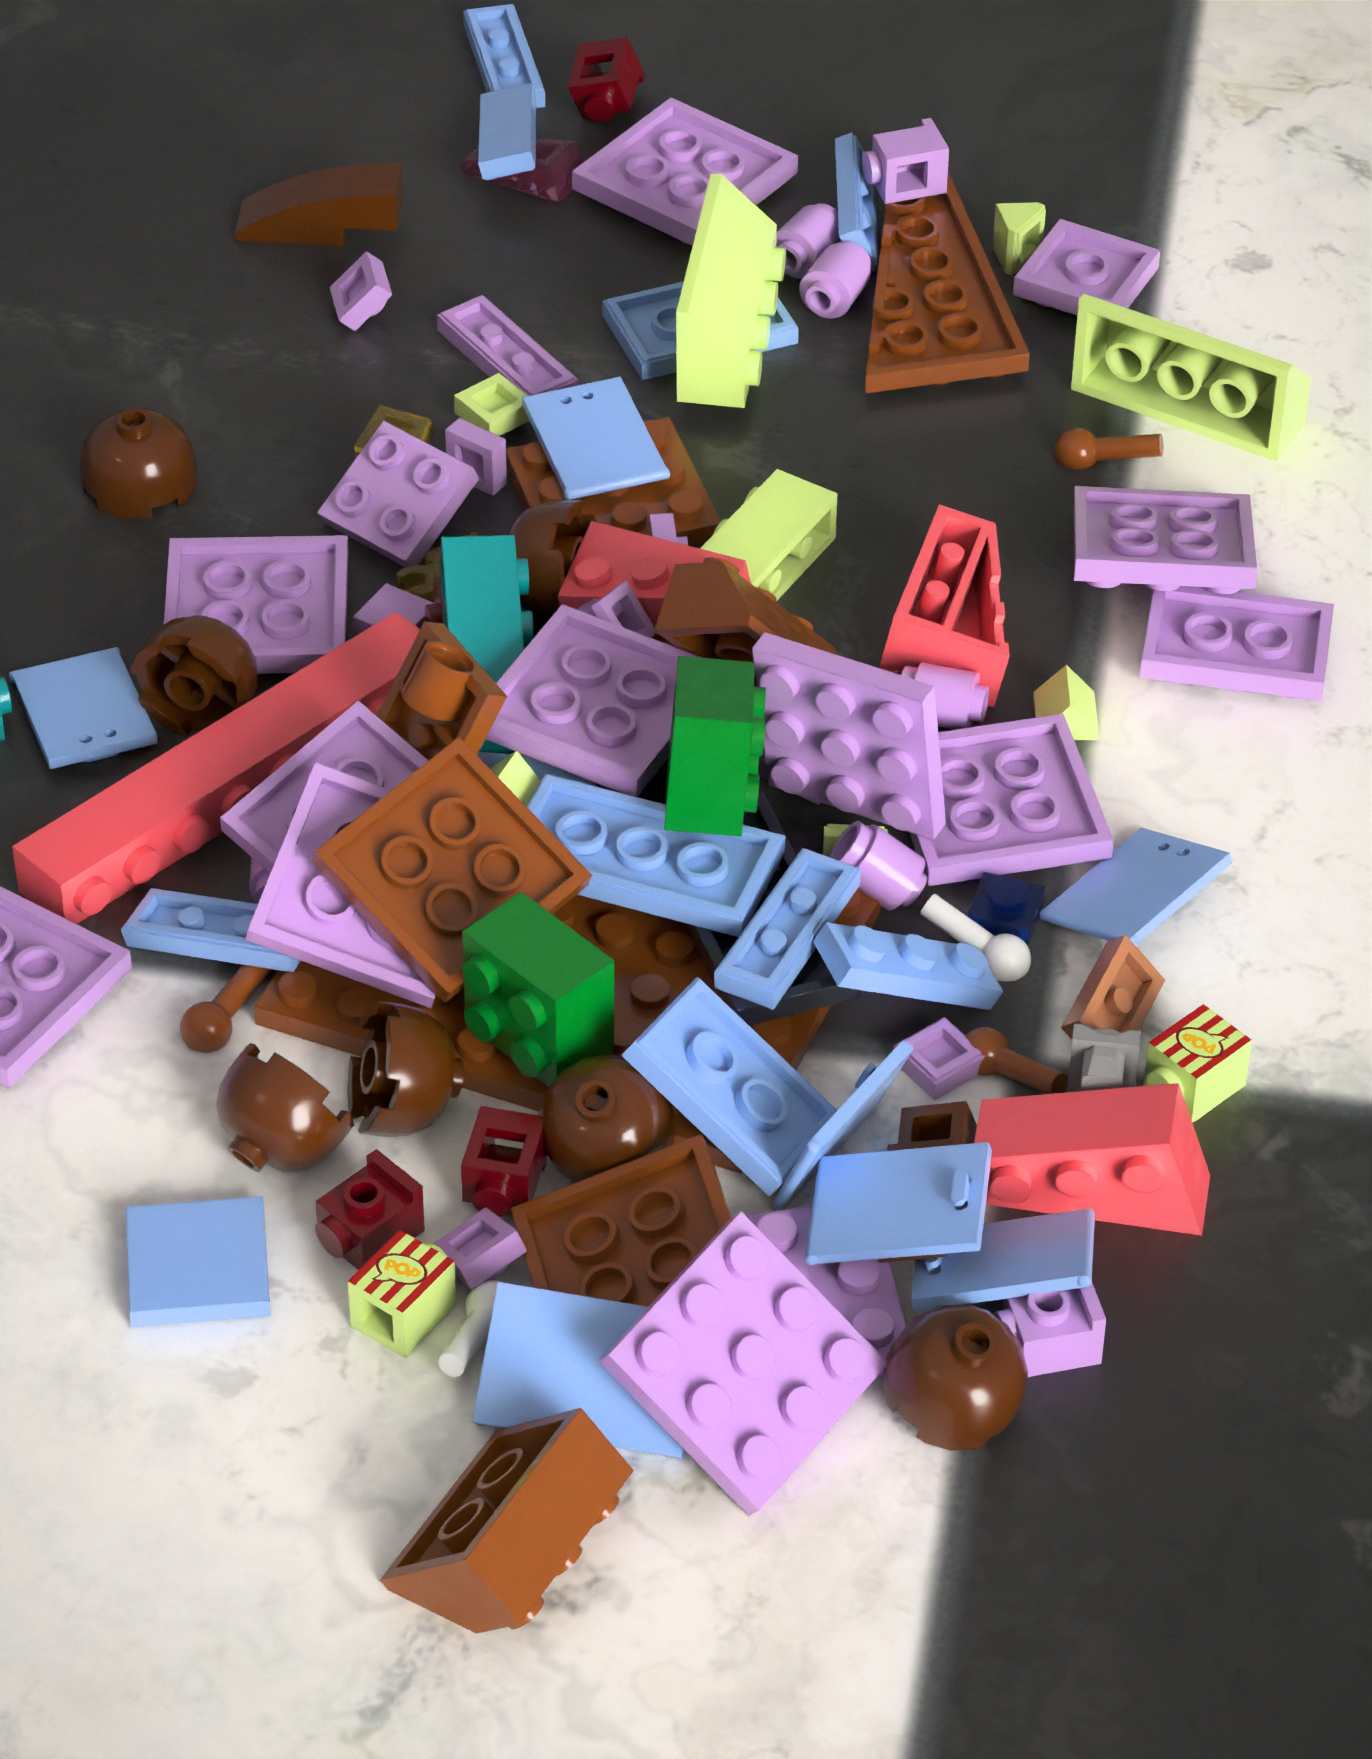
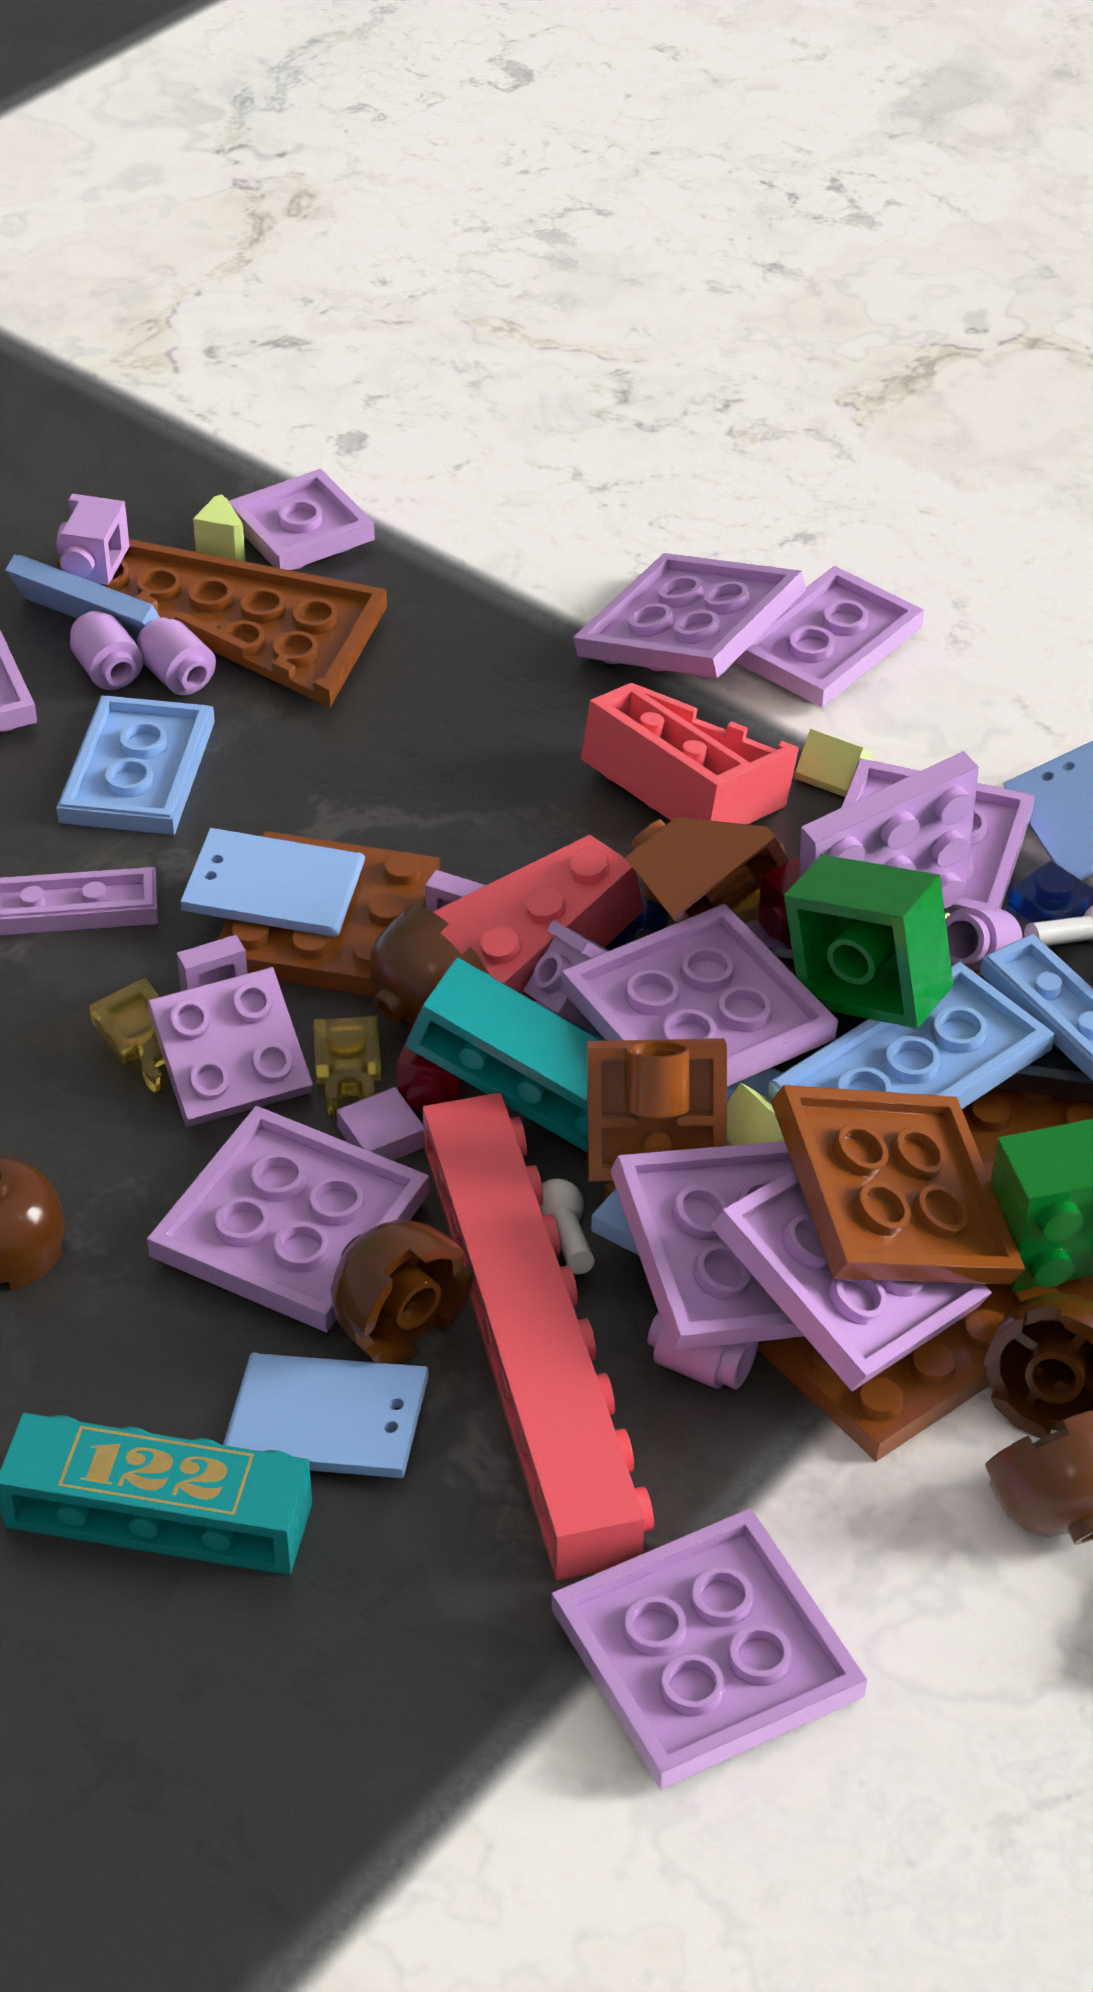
camera: 60 degrees left, 0 degrees up
(200, 929) = (752, 1430): light blue tile -> none
(209, 1024) = (866, 1495): dark orange bar -> none
(492, 405) = (145, 935): yellowish green plate -> none
(727, 299) = (175, 723): yellowish green slope -> none
(778, 530) = (487, 824): yellowish green brick -> none
(957, 694) = (784, 811): lavender brick -> none
(1080, 449) = (510, 621): dark orange bar -> none
(1188, 378) = (502, 519): yellowish green slope -> none

